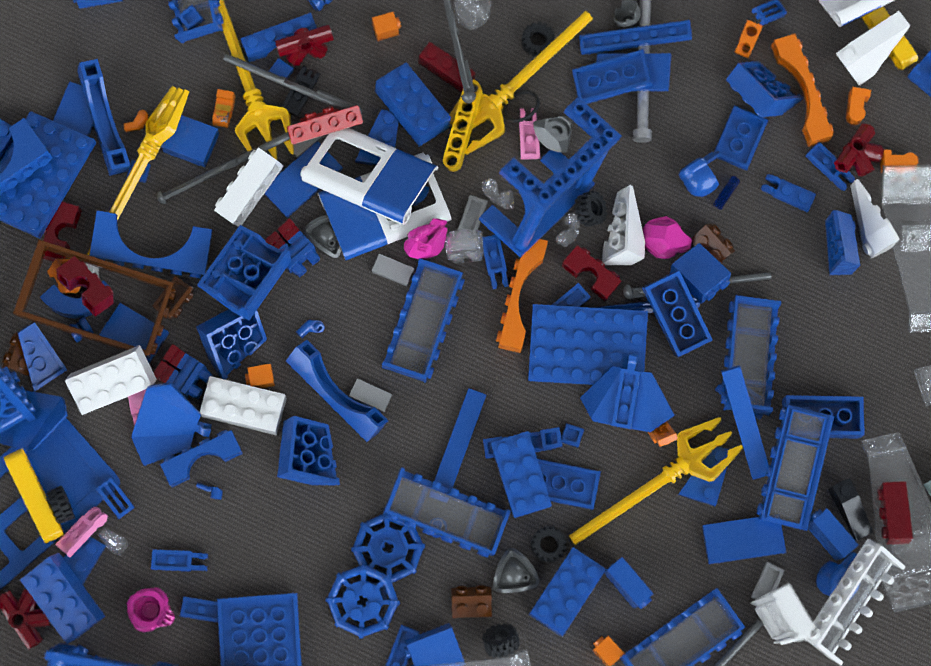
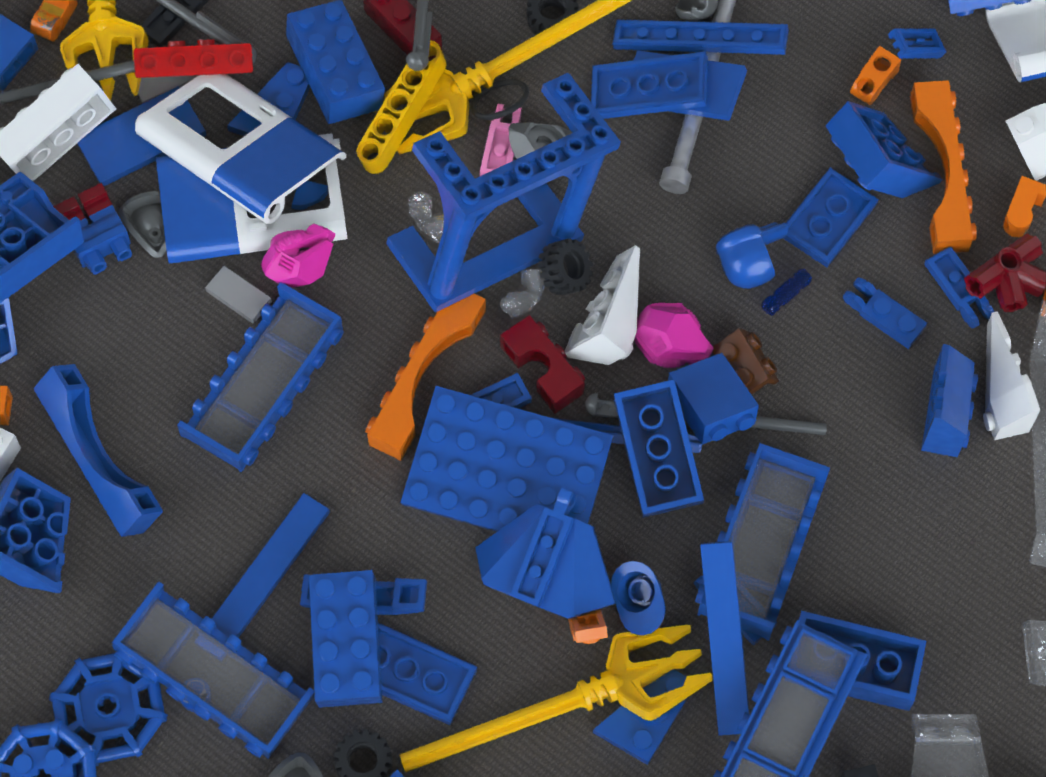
camera: 20 degrees right, 10 degrees down
(310, 326) = (88, 349): blue arm -> none
(370, 395) = (149, 470): light grey tile -> none
(464, 245) = (355, 279): clear brick -> none
(474, 209) = (374, 251): light grey tile -> none
(494, 260) = (397, 311): blue hinge -> none
(572, 435) = (447, 602): blue tile -> none
(687, 408) = (638, 597): none -> blue piece

